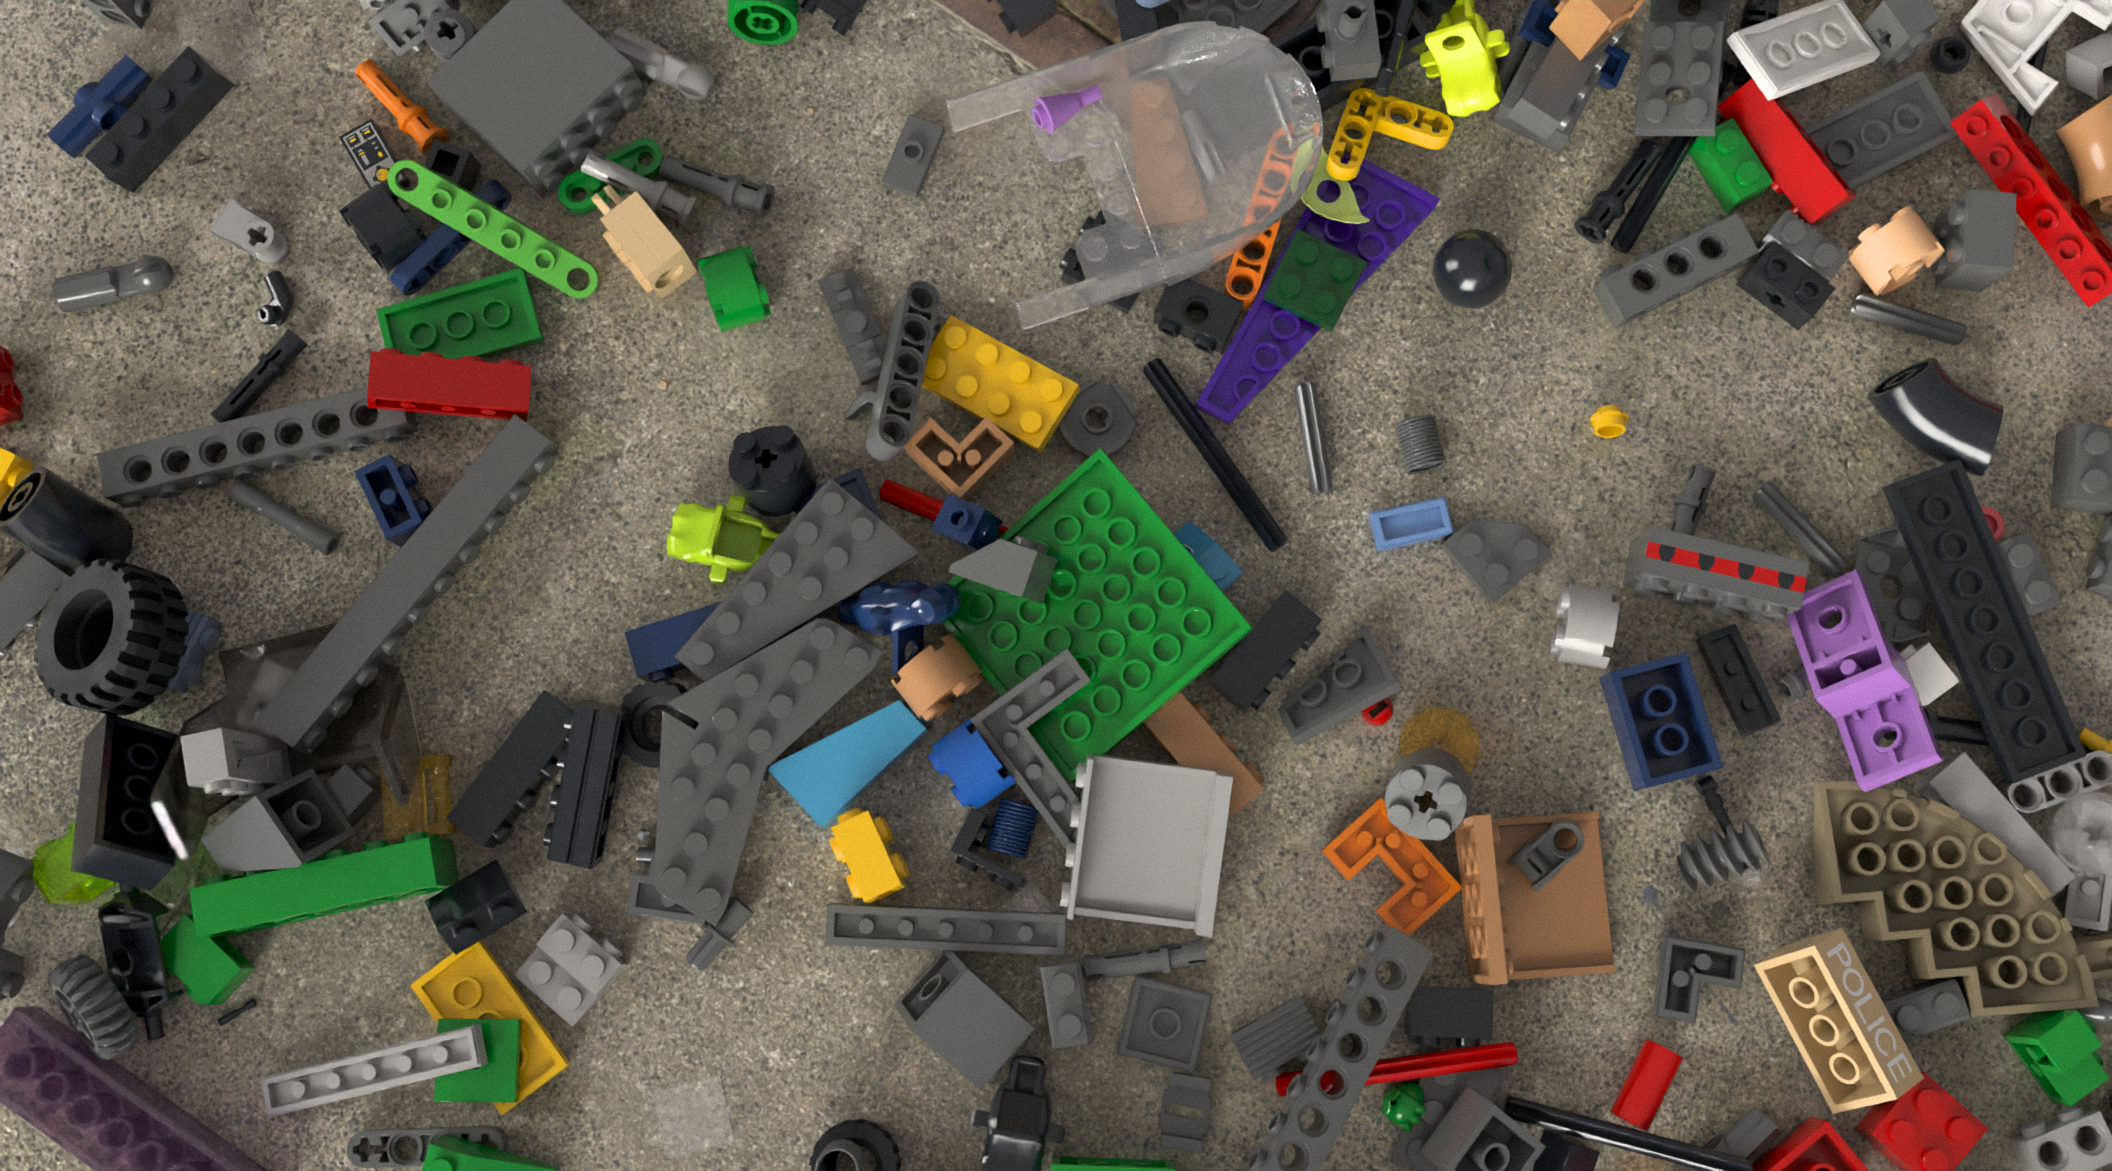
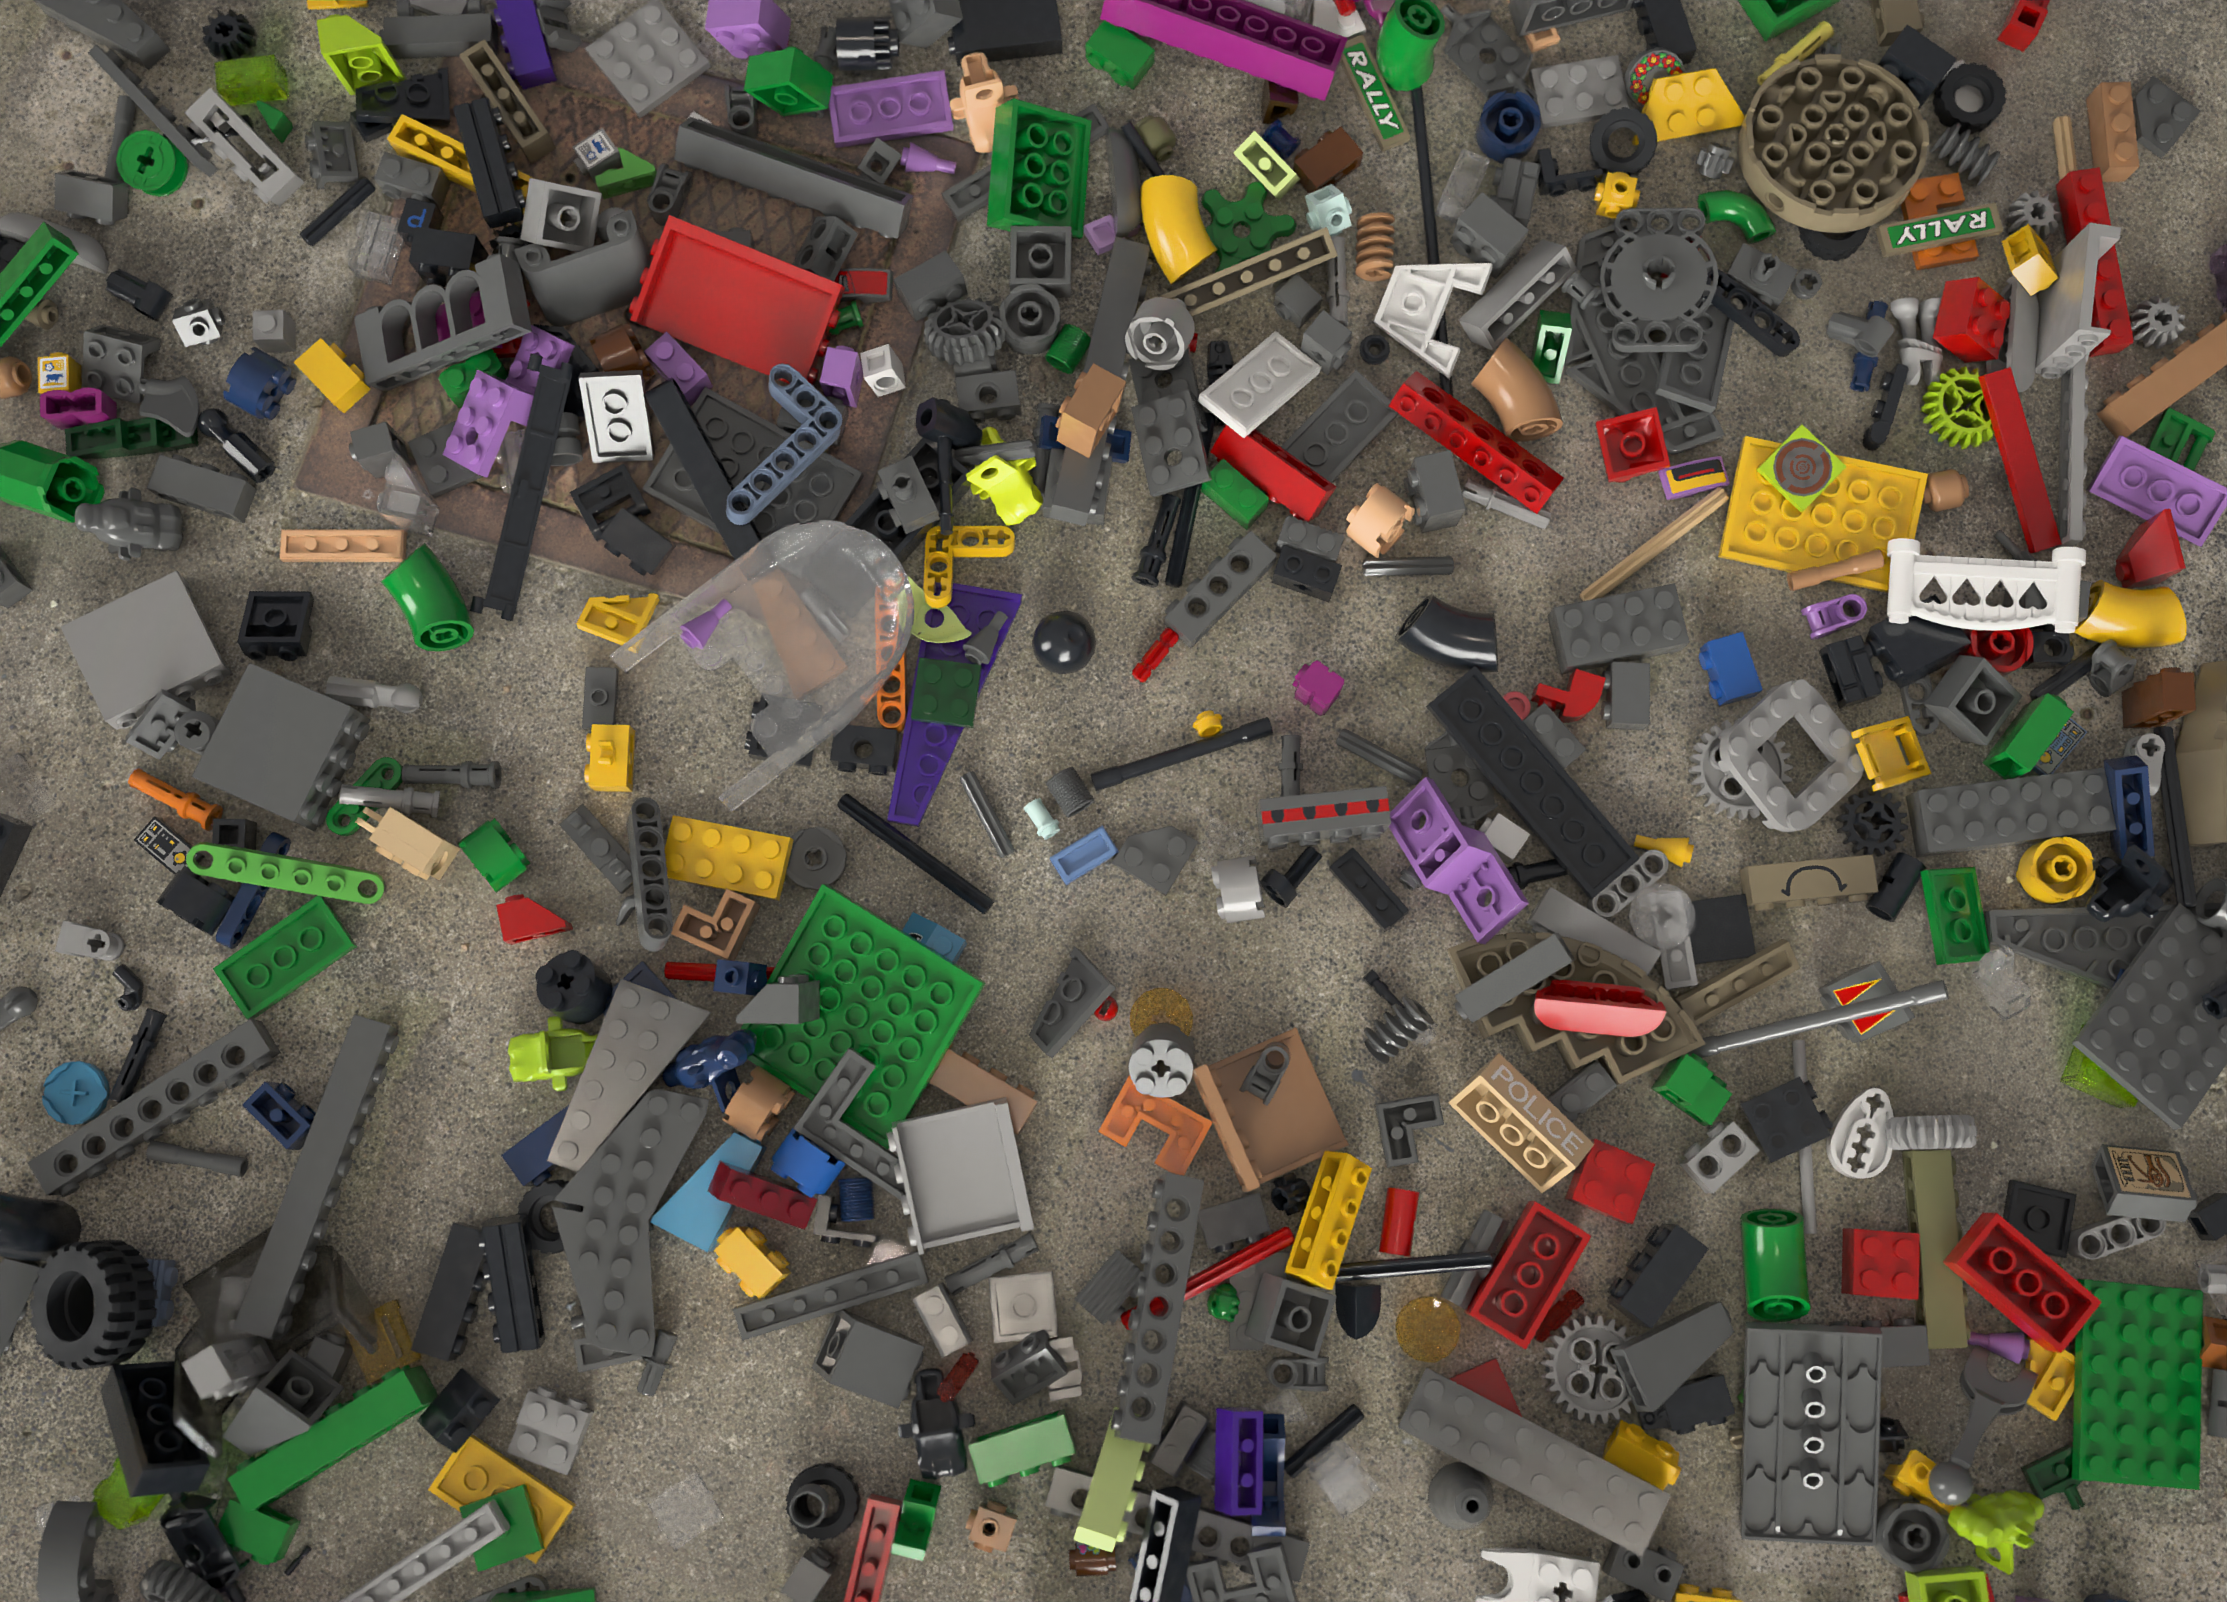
camera: 25 degrees left, 0 degrees up
(177, 396) = (75, 1093): none -> dark azure tile
(448, 385) = (293, 1010): red brick -> none
(746, 377) = (527, 920): none -> red slope
(902, 226) = (610, 758): none -> yellow brick
(907, 784) = (761, 1195): none -> dark red brick
(962, 68) = (617, 617): none -> yellow wing
(1062, 1078) = (957, 1377): none -> clear red axle
(1146, 1096) = (1026, 1367): none -> dark grey bracket
(1266, 653) = (1005, 994): black brick -> none
(1375, 239) = (981, 646): none -> dark grey cone
(1376, 464) = (1042, 819): none -> light aqua pin
(1485, 23) = (1007, 450): none -> dark grey axle
(1527, 1005) = (1290, 1194): none -> black gear
(1565, 1052) = (1328, 1220): none -> yellow brick
(1572, 321) = (1155, 655): none -> red axle
(1635, 640) = (1281, 887): none -> black piece
(1650, 447) = (1118, 774): none -> black piece
(1660, 721) = (1319, 943): dark blue brick -> none
(1758, 420) = (1317, 687): none -> magenta brick
(1894, 844) = (1513, 978): none -> dark grey slope
(1984, 917) = (1597, 1008): none -> brick
(2054, 287) = (1504, 503): none -> light grey axle
(2070, 539) = (1577, 701): none -> red brick

